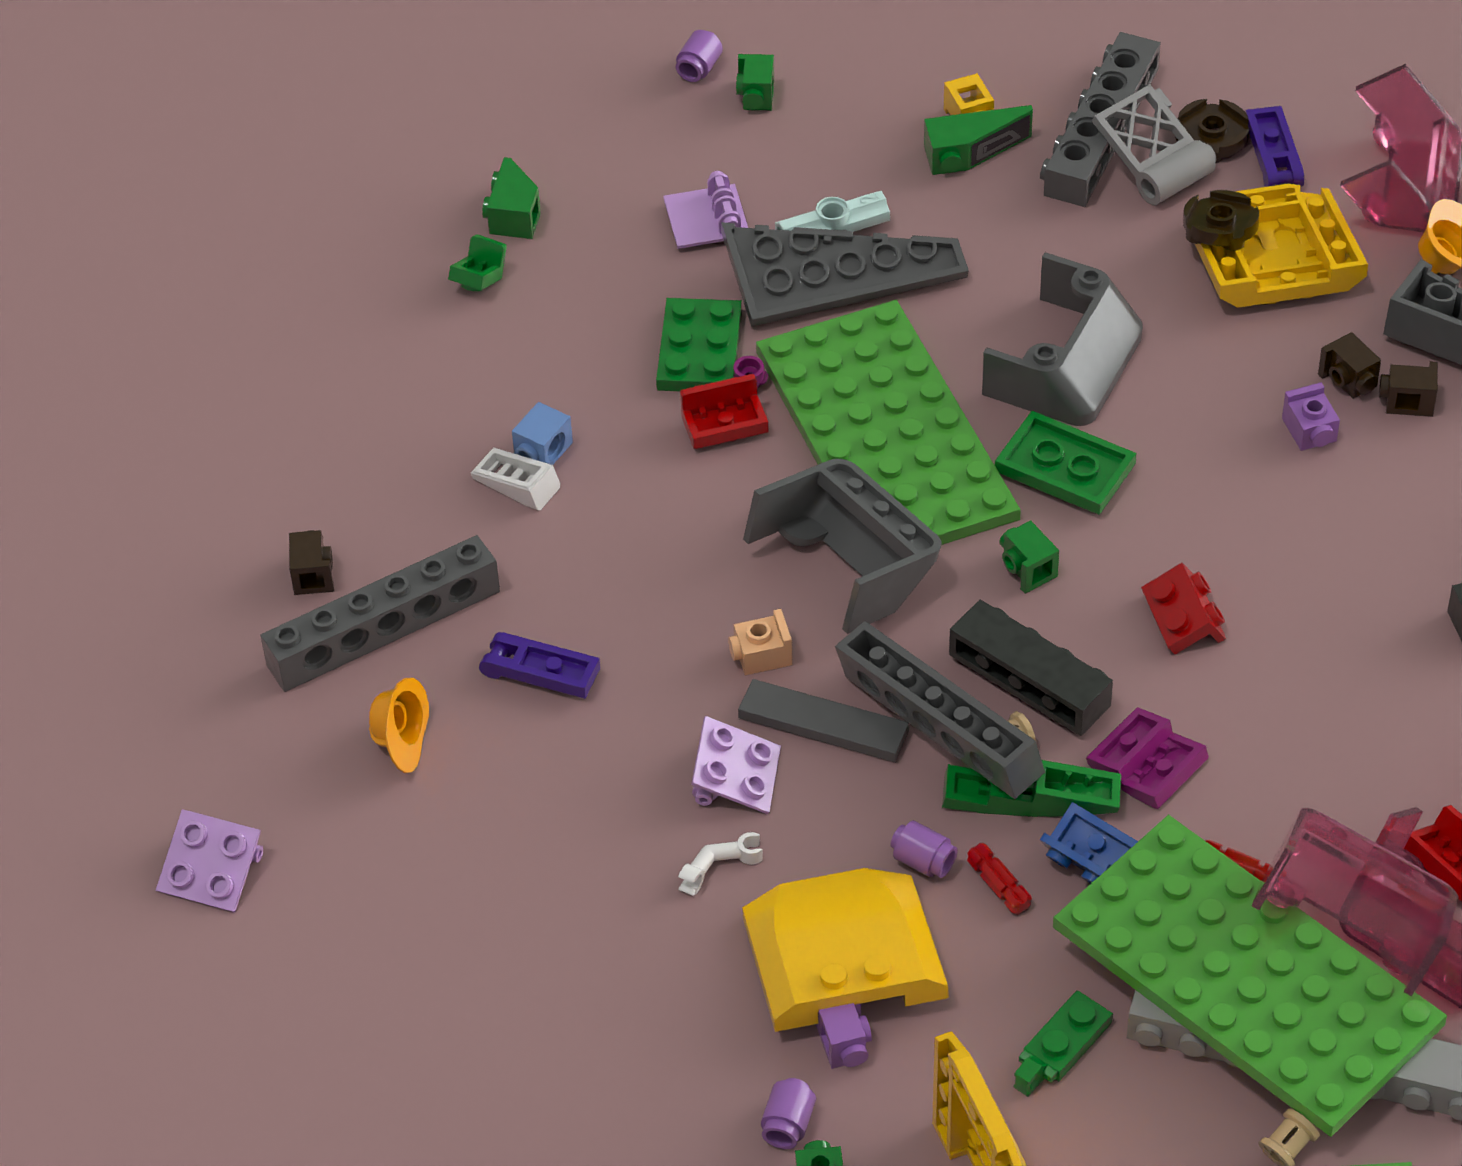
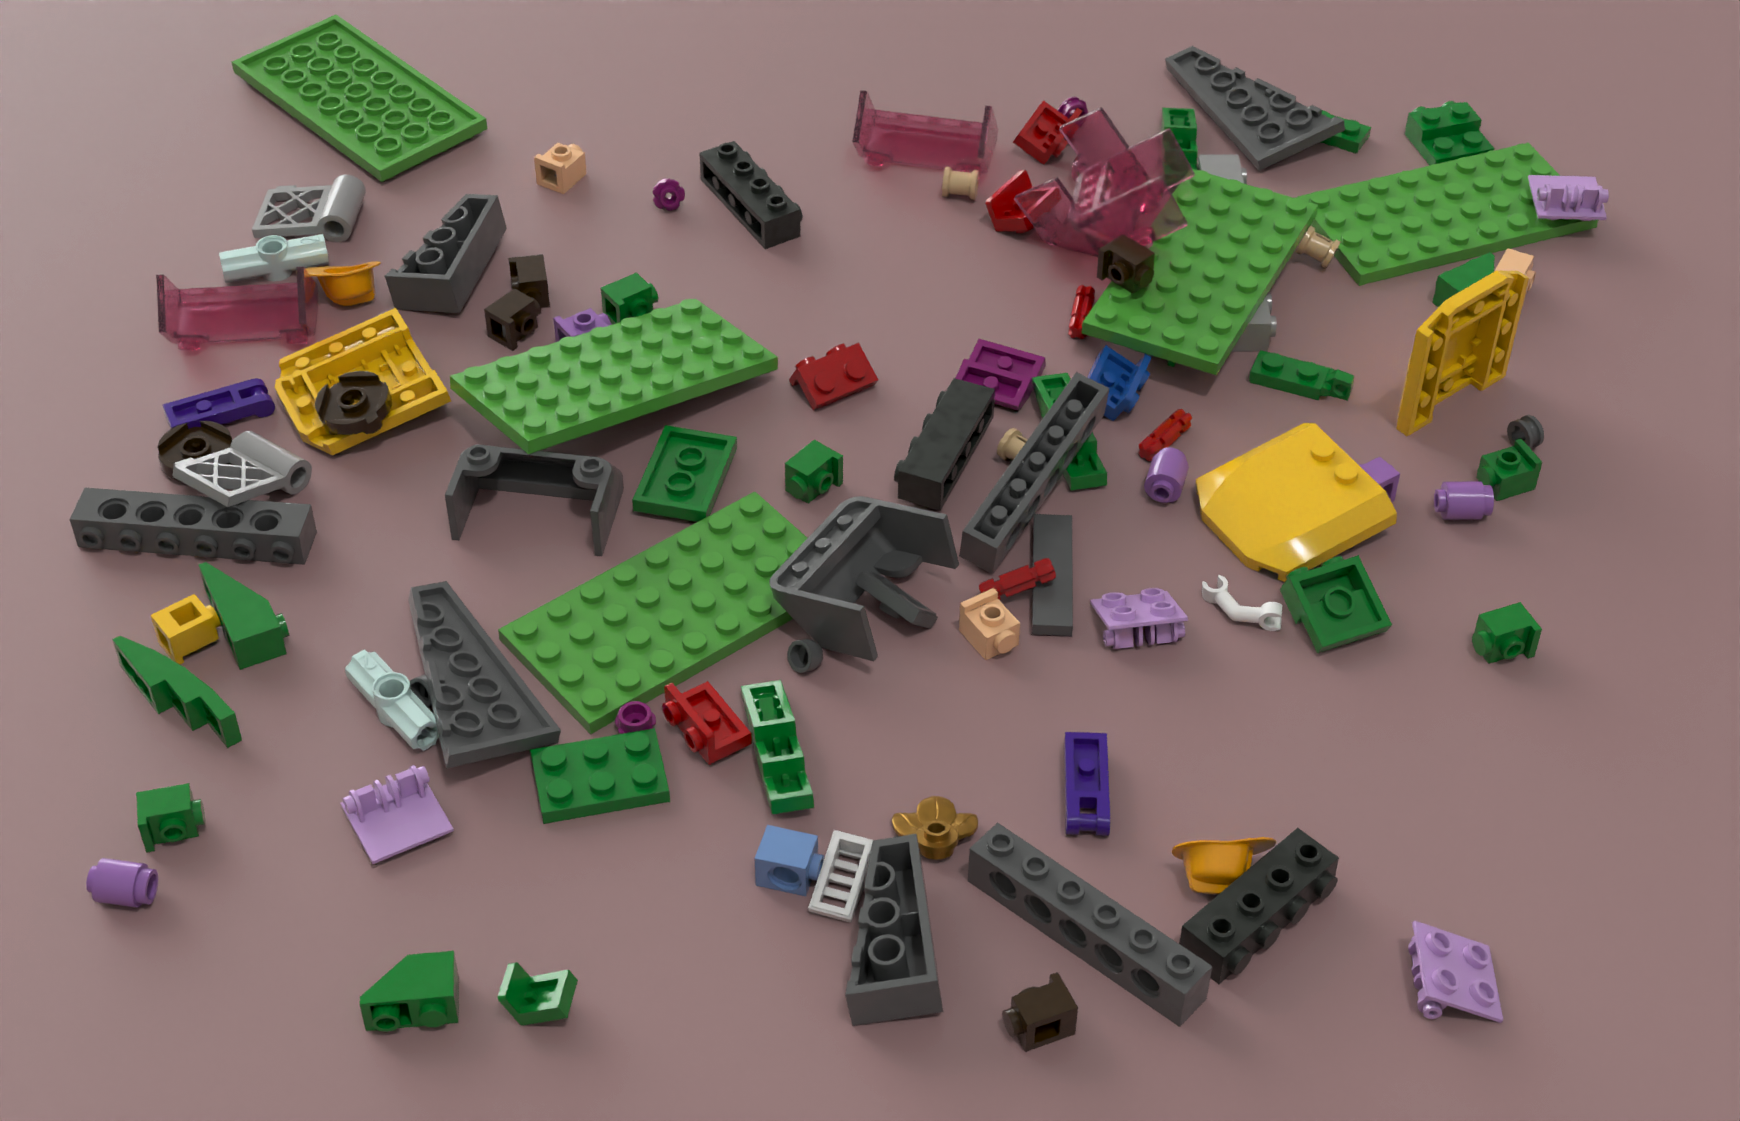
camera: 110 degrees left, 5 degrees down
(345, 743) = (1260, 904): none -> pearl dark grey brick
(426, 482) = (894, 951): none -> dark grey wedge
(544, 549) = (936, 826): none -> pearl gold plate
(576, 1068) = (1506, 633): none -> green brick
(678, 929) = (1335, 603): none -> green plate
(687, 462) = (777, 747): none -> green slope
(811, 677) = (1021, 579): none -> red axle
(822, 580) = (895, 600): none -> dark grey plate
(894, 98) = (172, 685): none -> green slope
(1216, 419) = (611, 374): none -> bright green plate
(1228, 857) = (1126, 263): none -> dark brown brick
(1355, 460) = (628, 298): none -> green brick

